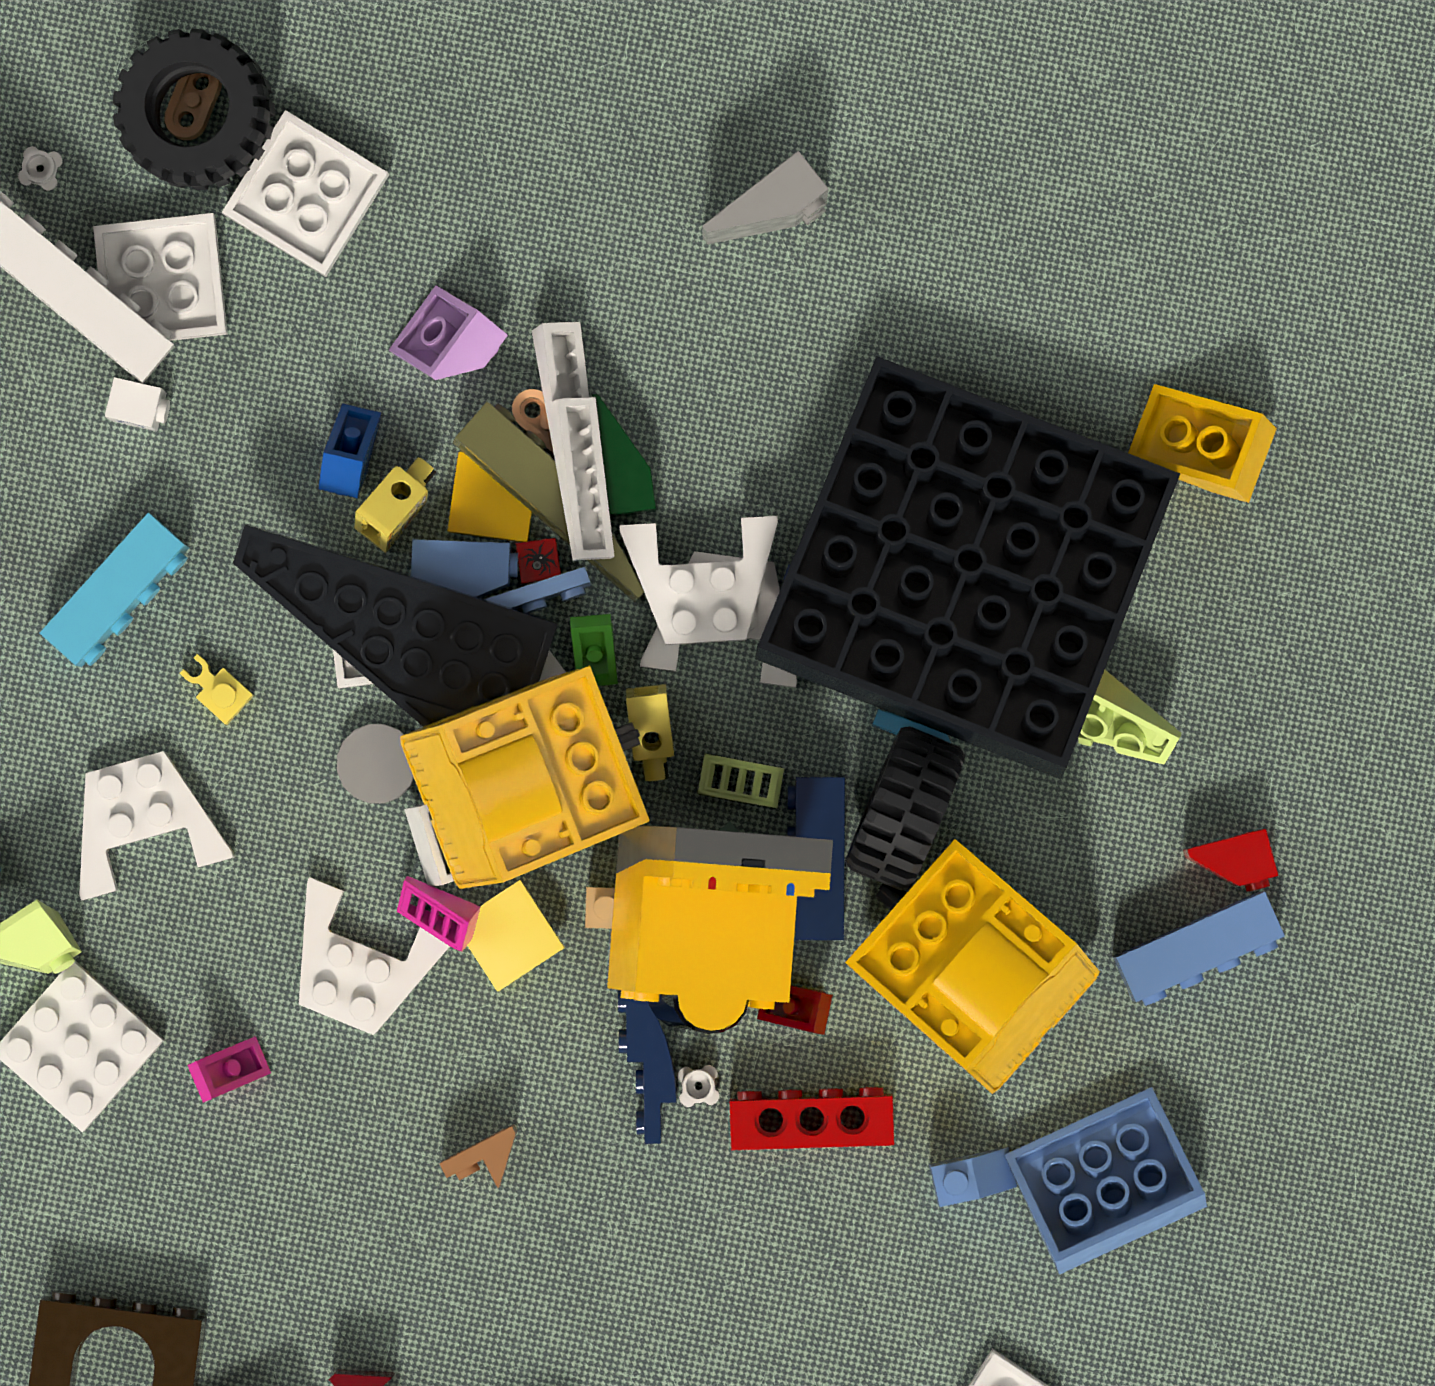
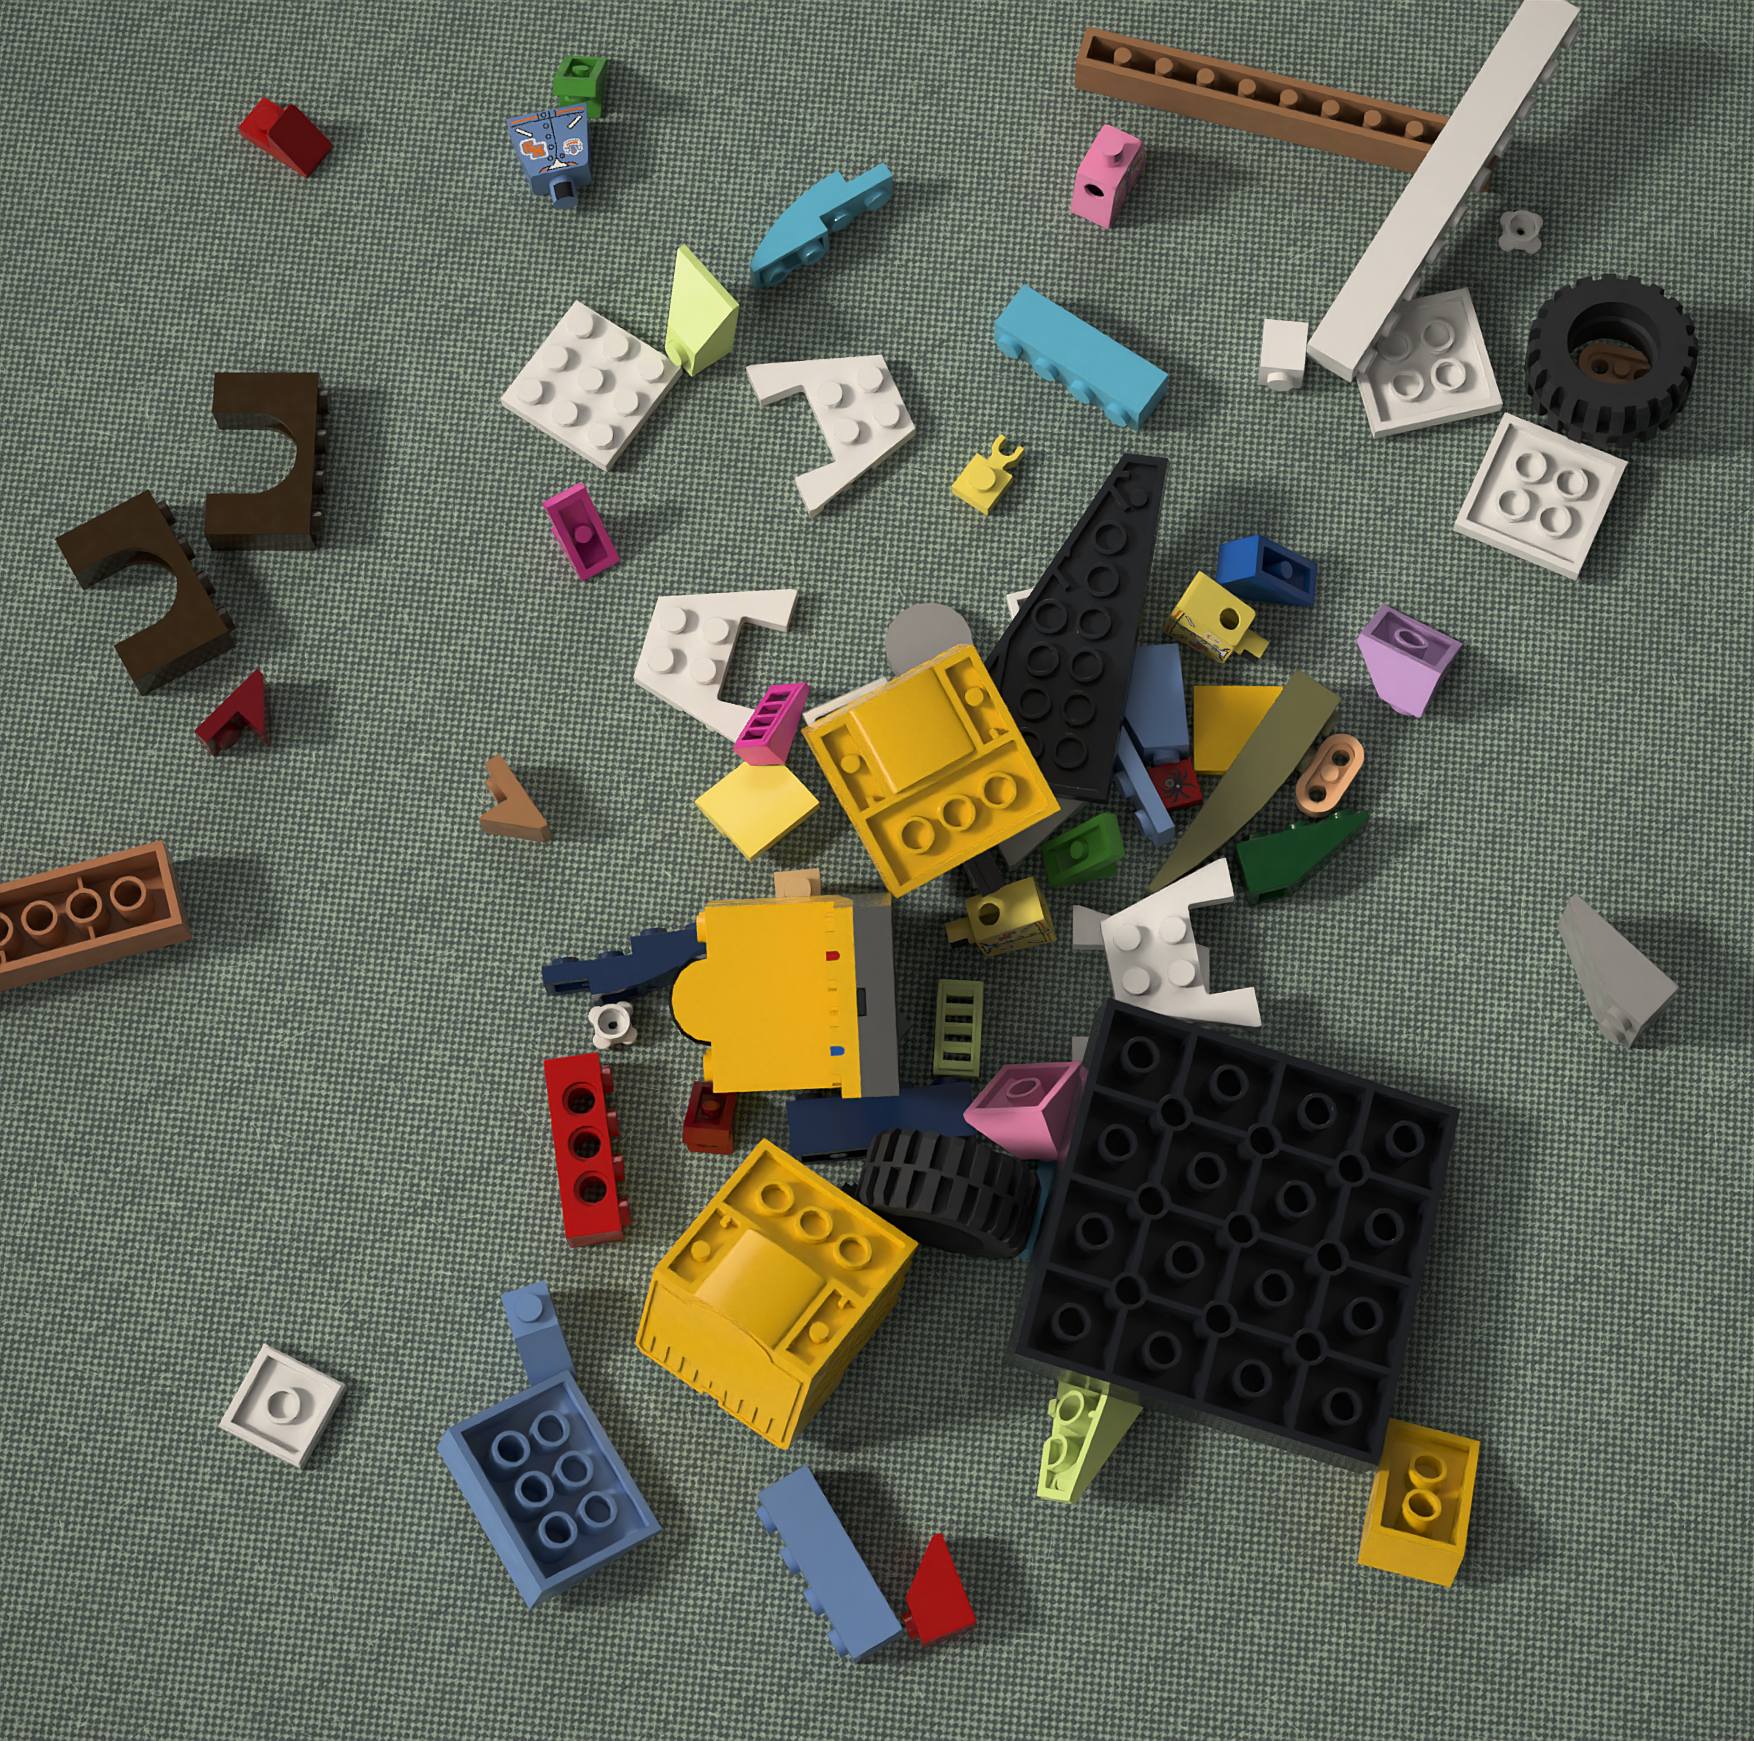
camera: 85 degrees right, 15 degrees down
(574, 438) = (1313, 797): white slope -> none
(826, 729) = (1026, 1108): none -> bright pink slope

